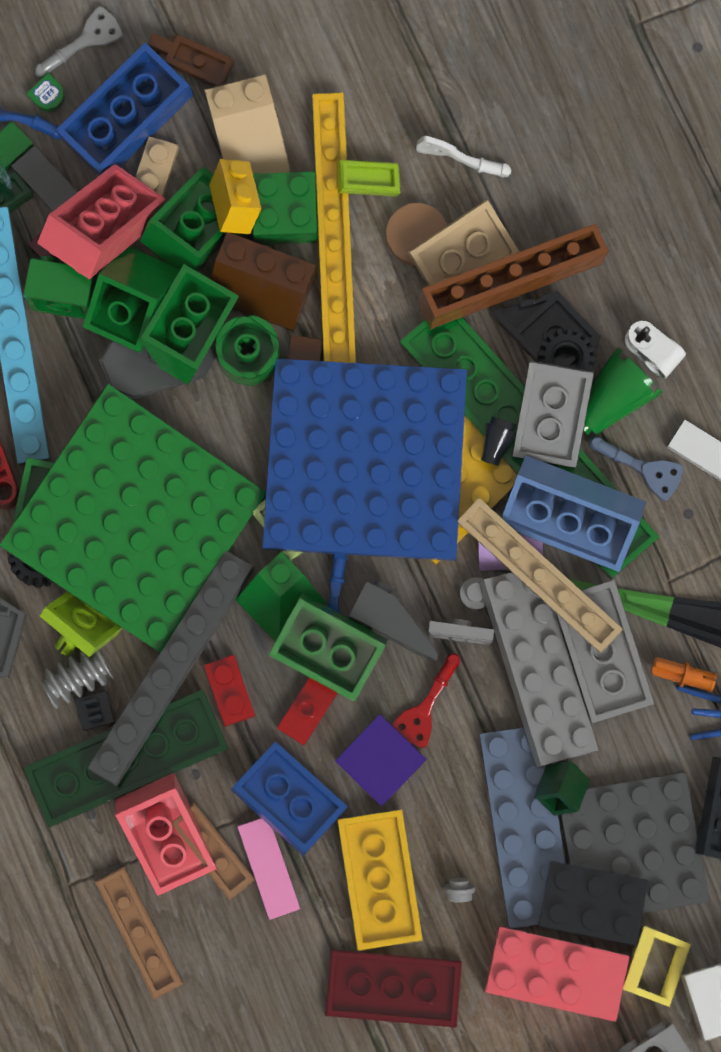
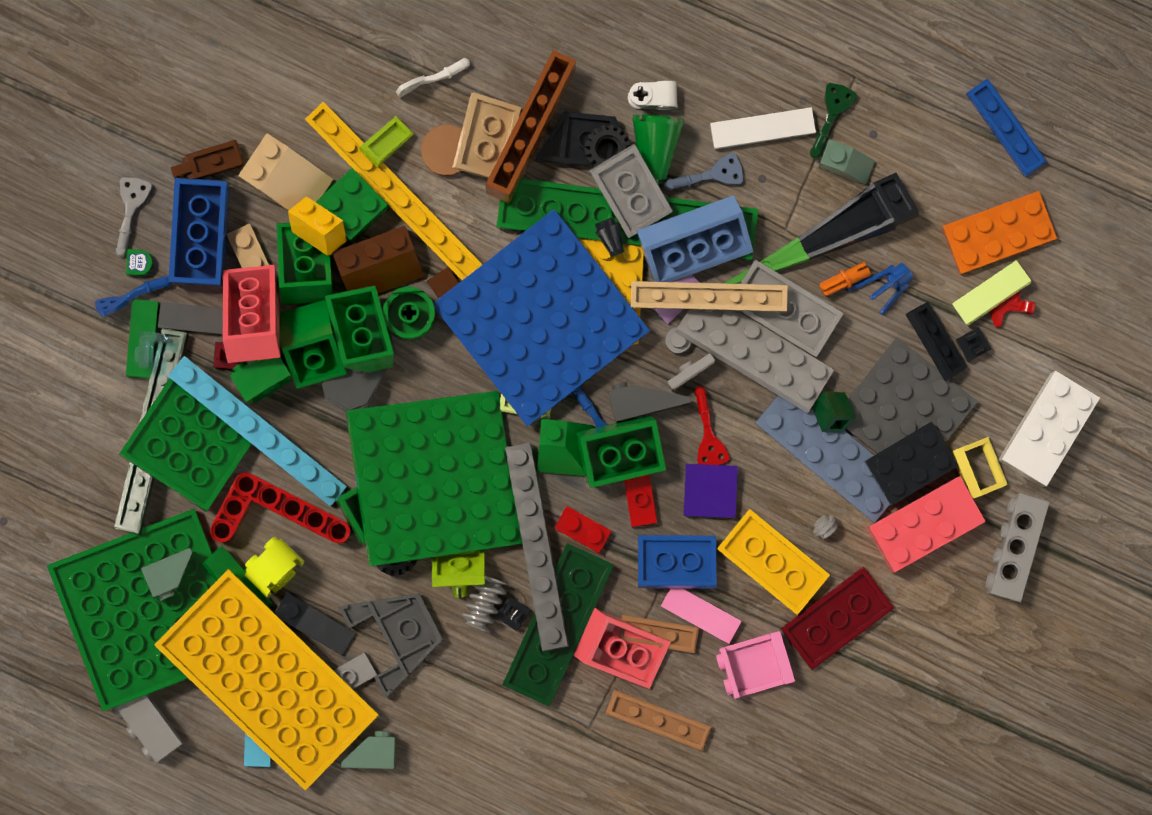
camera: 45 degrees left, 5 degrees up
(275, 962) = (755, 665): none -> bright pink panel

